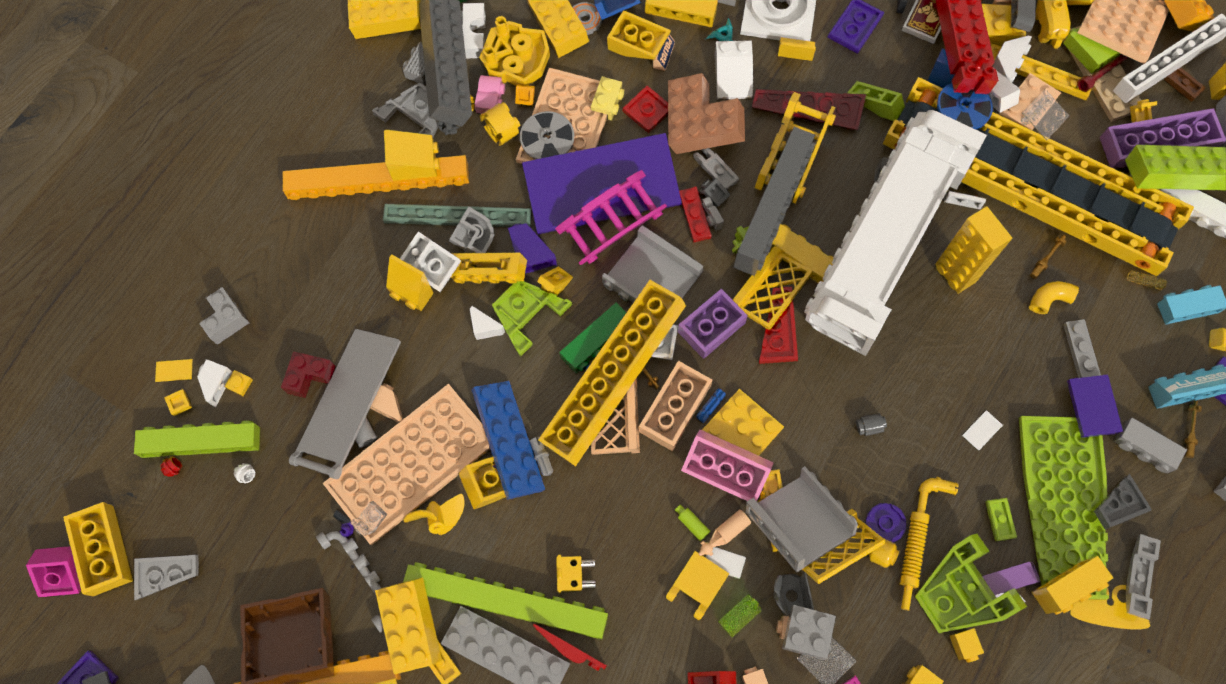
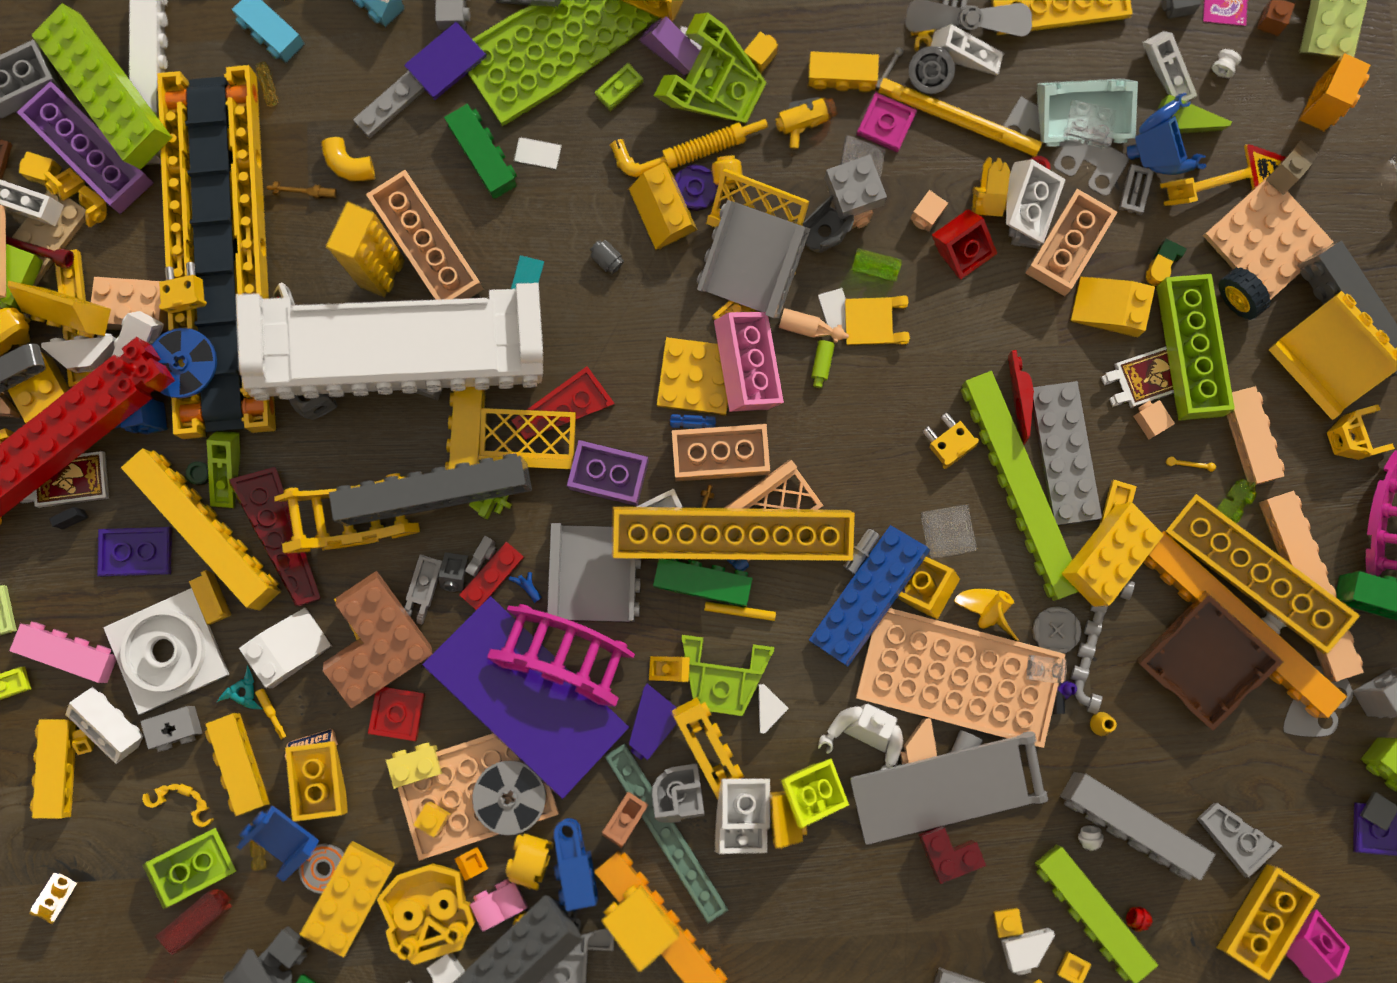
camera: 125 degrees left, 10 degrees up
(224, 505) = (1138, 826): none -> light grey brick
(309, 537) = (1097, 724): none -> yellow cone
(390, 553) = (1056, 629): none -> light grey tile
(409, 308) = (814, 792): none -> neon yellow slope
(421, 378) = (869, 726): none -> white torso
(476, 145) = (574, 868): none -> blue brick
(482, 191) = (624, 819): none -> nougat slope
(511, 527) = (948, 531): none -> clear plate
(556, 354) = (740, 611): none -> yellow bar
(566, 84) = (432, 819): none -> yellow brick
(672, 231) = (527, 585): none -> blue bar
(700, 42) = (270, 711): none -> yellow piece
(843, 62) = (201, 529): none -> yellow brick
(885, 83) = (197, 473): none -> dark green tile
(885, 488) = (662, 206): none -> yellow slope
(889, 363) = (527, 271): none -> teal sticker
(894, 641) = (803, 115): none -> yellow piece
(959, 308) = (424, 239): none -> light nougat brick
(1007, 389) = (480, 150): none -> green brick
(1015, 129) = (182, 292): none -> yellow piece
(1044, 114) = (139, 273): clear hinge -> none
(1049, 60) = (61, 309): none -> yellow slope
(1108, 120) = (94, 204): none -> yellow bracket
(1165, 104) = (34, 167): none -> yellow brick

